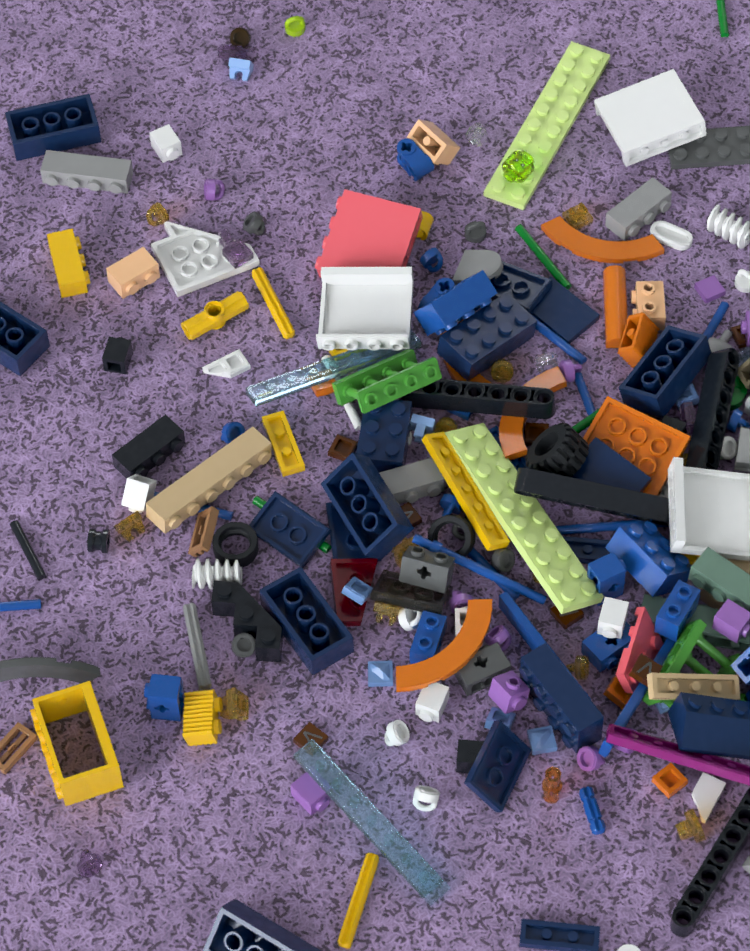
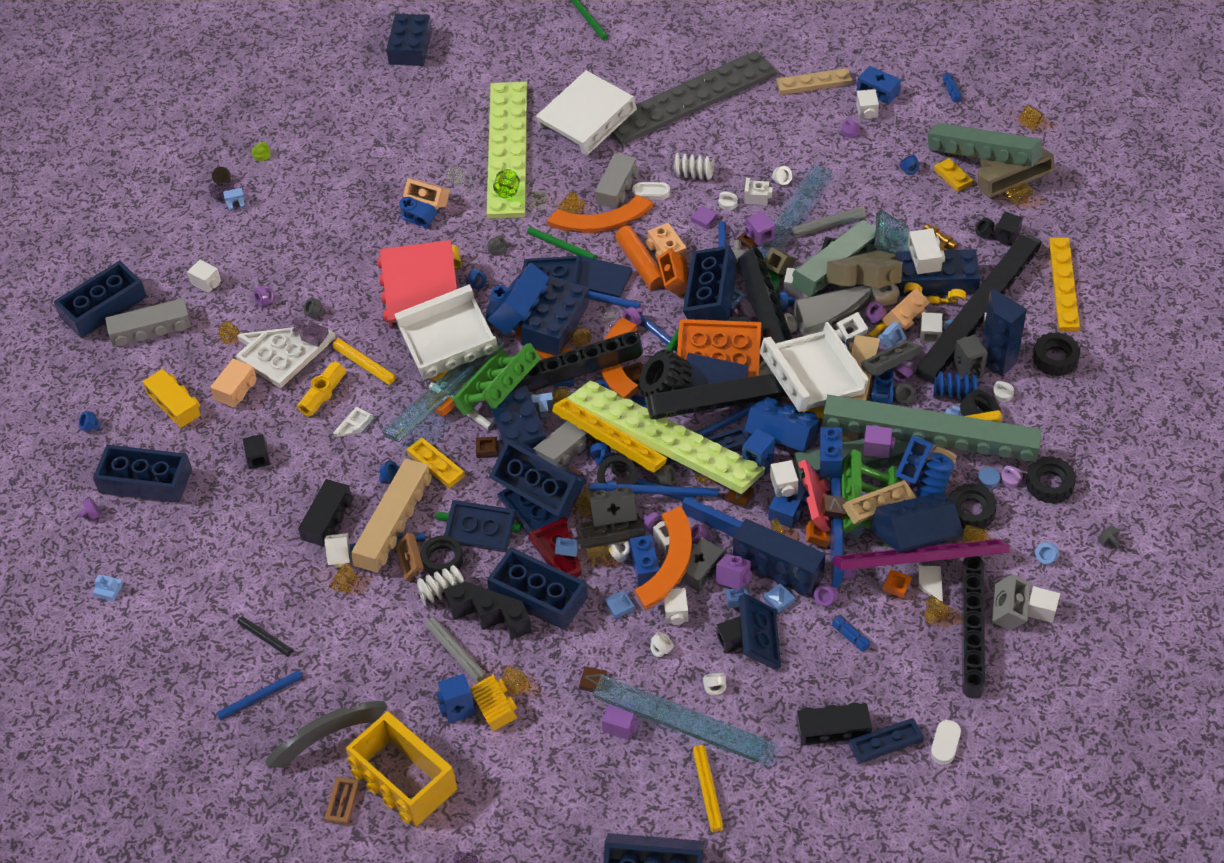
camera: 25 degrees left, 5 degrees down
(98, 540) = (323, 601): black wheel -> none
(243, 645) = (495, 630): dark grey tile -> none
(477, 260) = (512, 266): light grey tile -> none
(516, 894) = (833, 723): none -> black brick
(552, 785) = (812, 625): clear orange pin -> none

